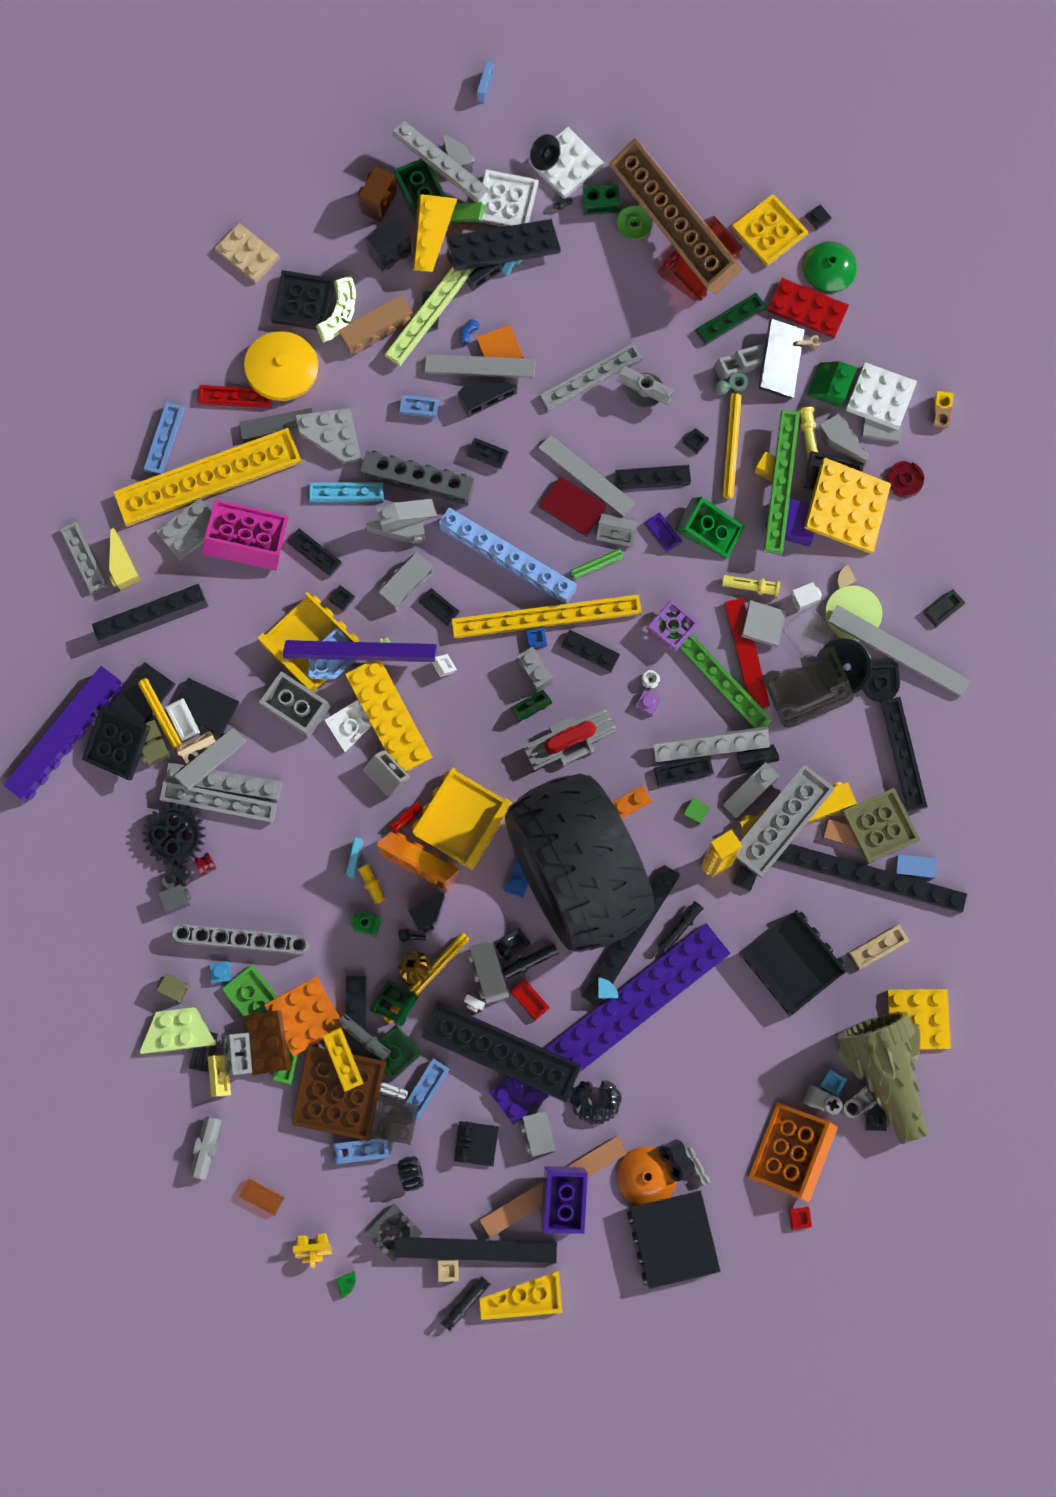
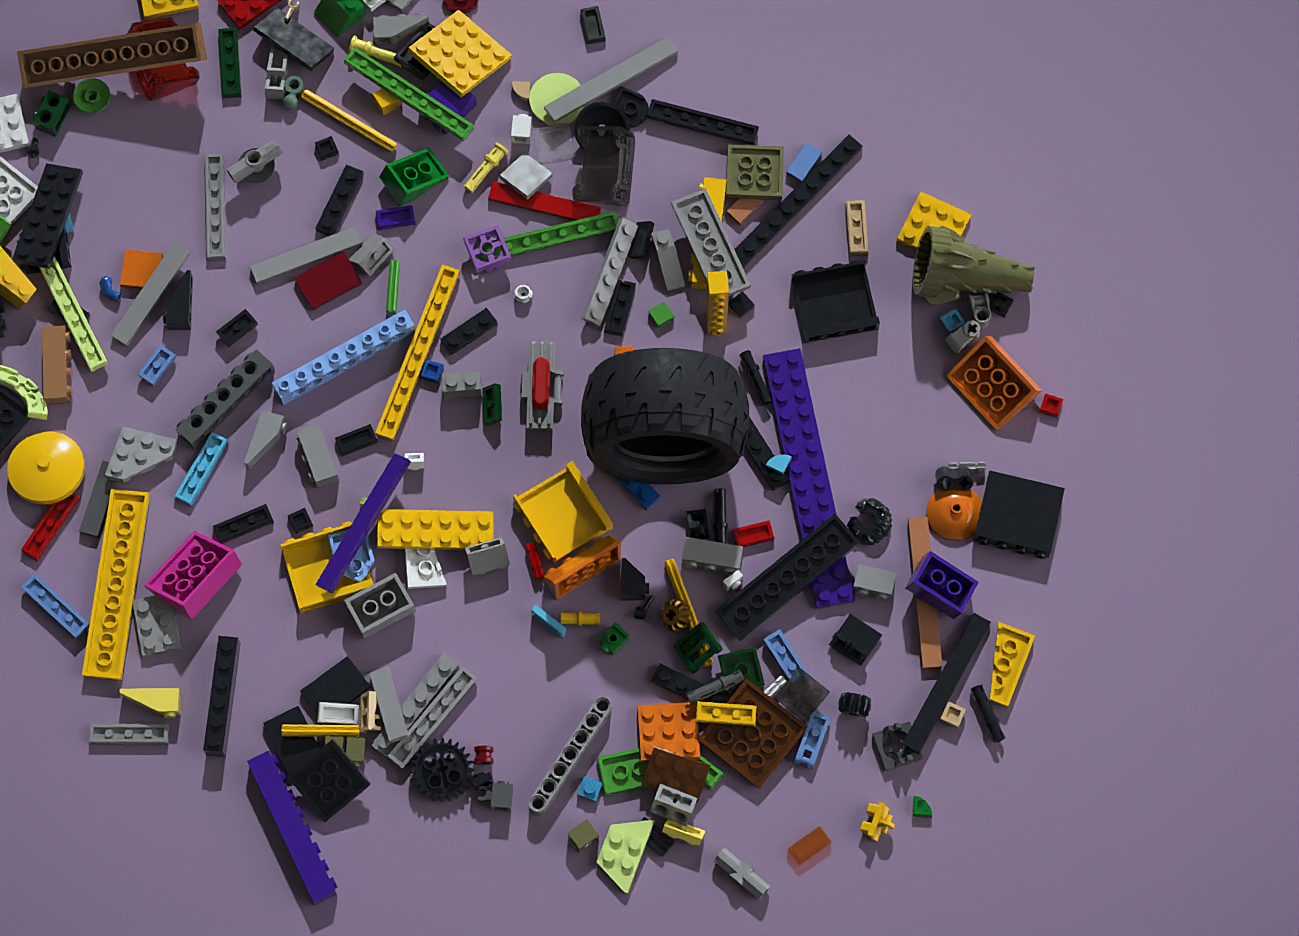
camera: 65 degrees left, 5 degrees down
(405, 513) = (257, 423): light grey slope -> none
(648, 703) = (543, 306): medium lavender plate -> none

